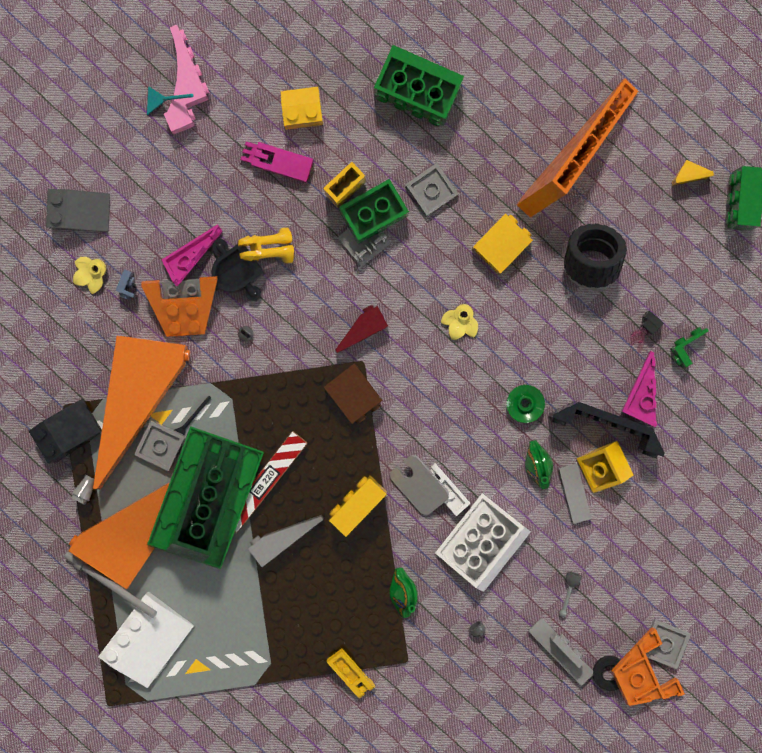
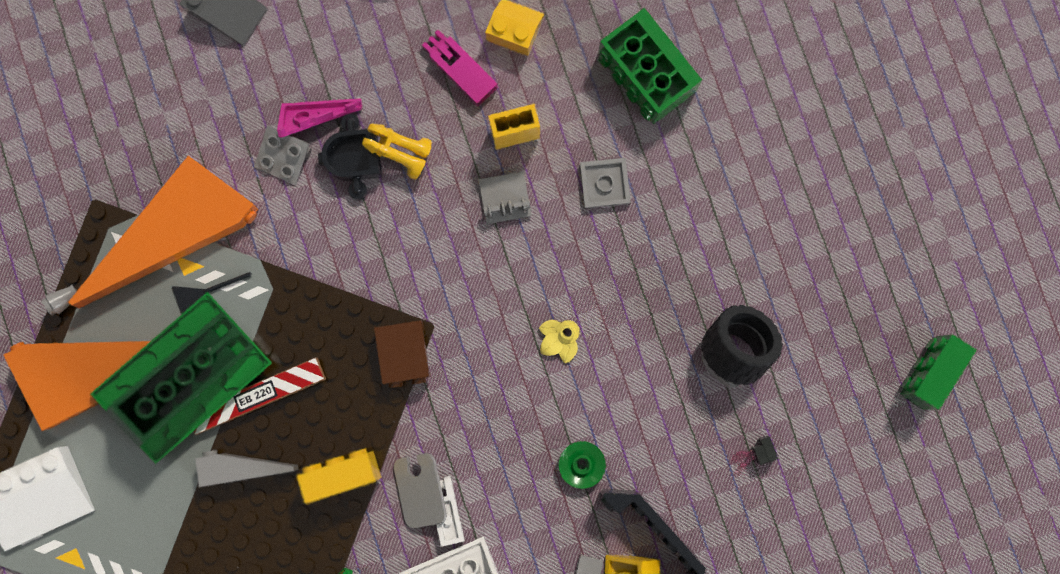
camera: 30 degrees right, 5 degrees down
(65, 431) = (75, 227): black slope -> none
(82, 566) = (30, 422): light grey bar -> none
(86, 274) = (196, 78): light yellow plate -> none
(126, 281) = (230, 106): sand blue bracket -> none
(159, 445) = (167, 295): light grey tile -> none
(182, 315) = (269, 171): orange wing -> none
(248, 330) = (330, 226): dark grey hinge -> none
(365, 326) = (455, 288): dark red slope -> none
(373, 211) = (530, 171): green brick -> none
(502, 243) = (649, 279): yellow brick -> none
(539, 464) = (561, 539): green hat -> none
(575, 156) = (775, 228): orange slope -> none
(641, 399) = (709, 529): dark pink wing -> none
(681, 357) = (777, 505): green bracket -> none
(691, 172) = (892, 314): yellow slope -> none

